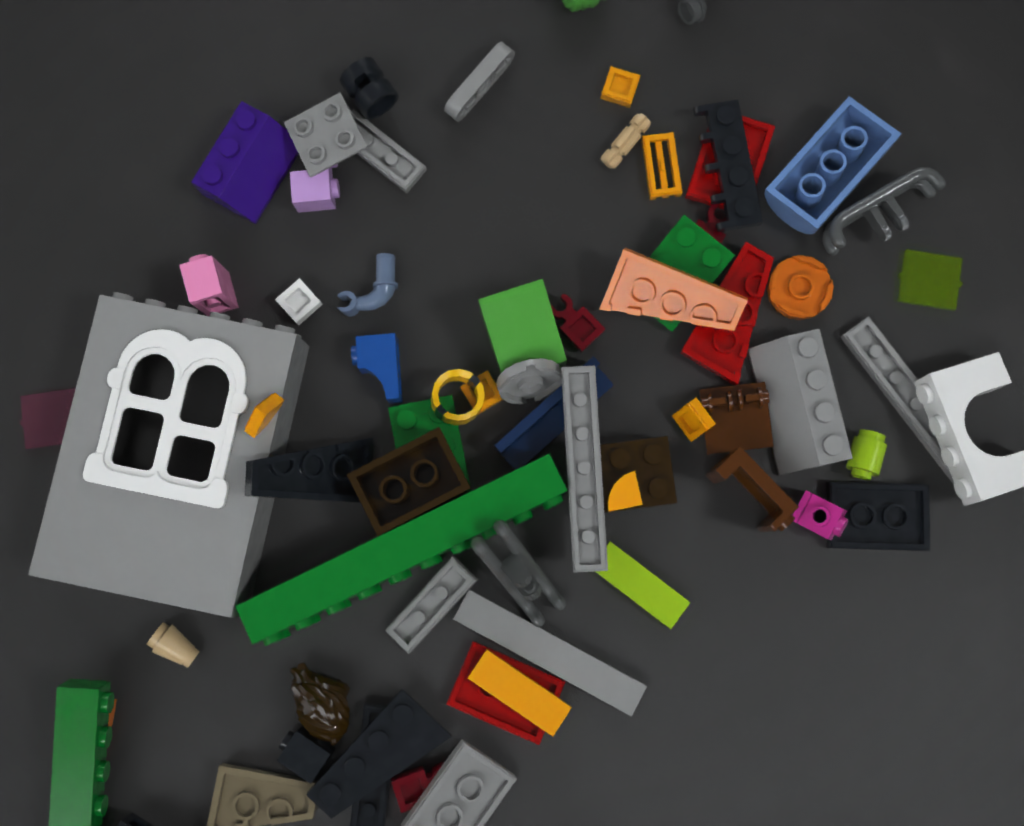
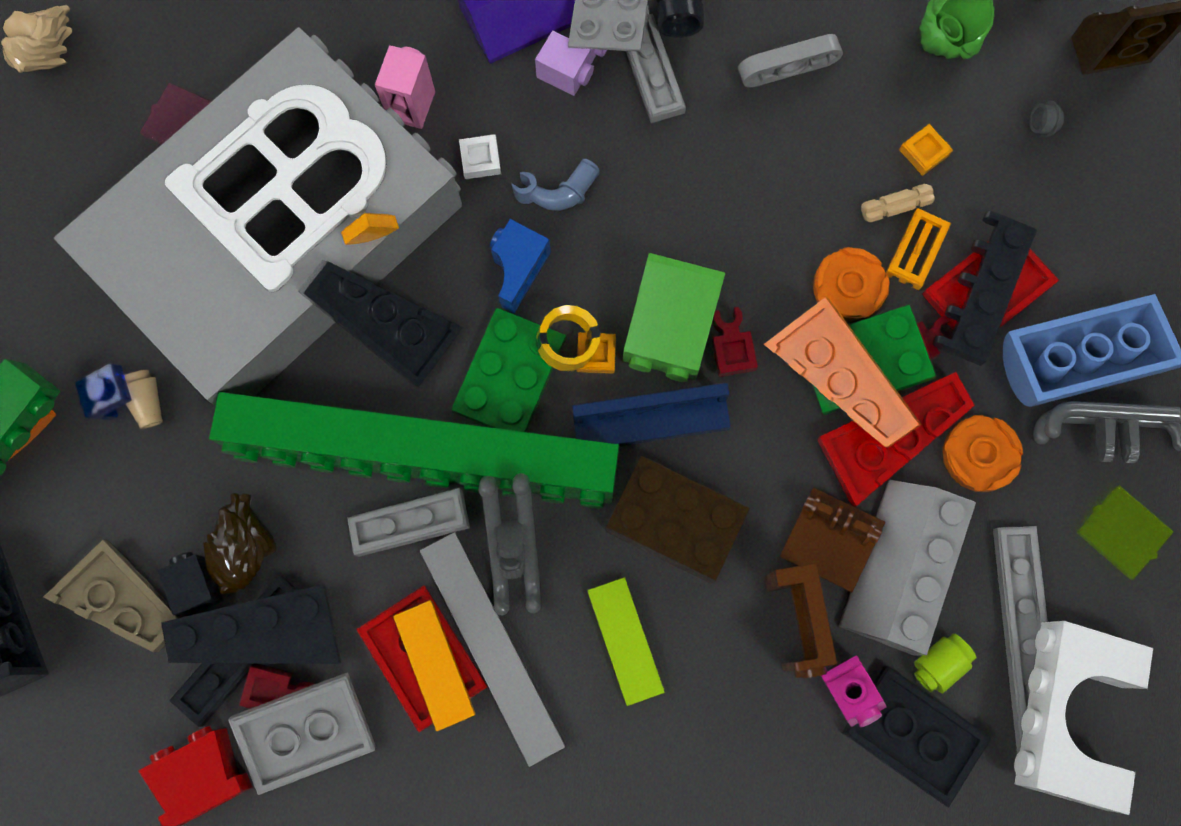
camera: 30 degrees right, 5 degrees down
(143, 661) = (103, 392): none -> clear blue bracket
(409, 482) = (466, 383): dark brown brick -> none
(529, 380) = (648, 366): light grey tile -> none
(584, 469) = (643, 485): light grey tile -> none
(624, 493) = (668, 534): light orange tile -> none
(631, 222) = (852, 283): none -> orange tile
(693, 419) = (787, 512): light orange tile -> none

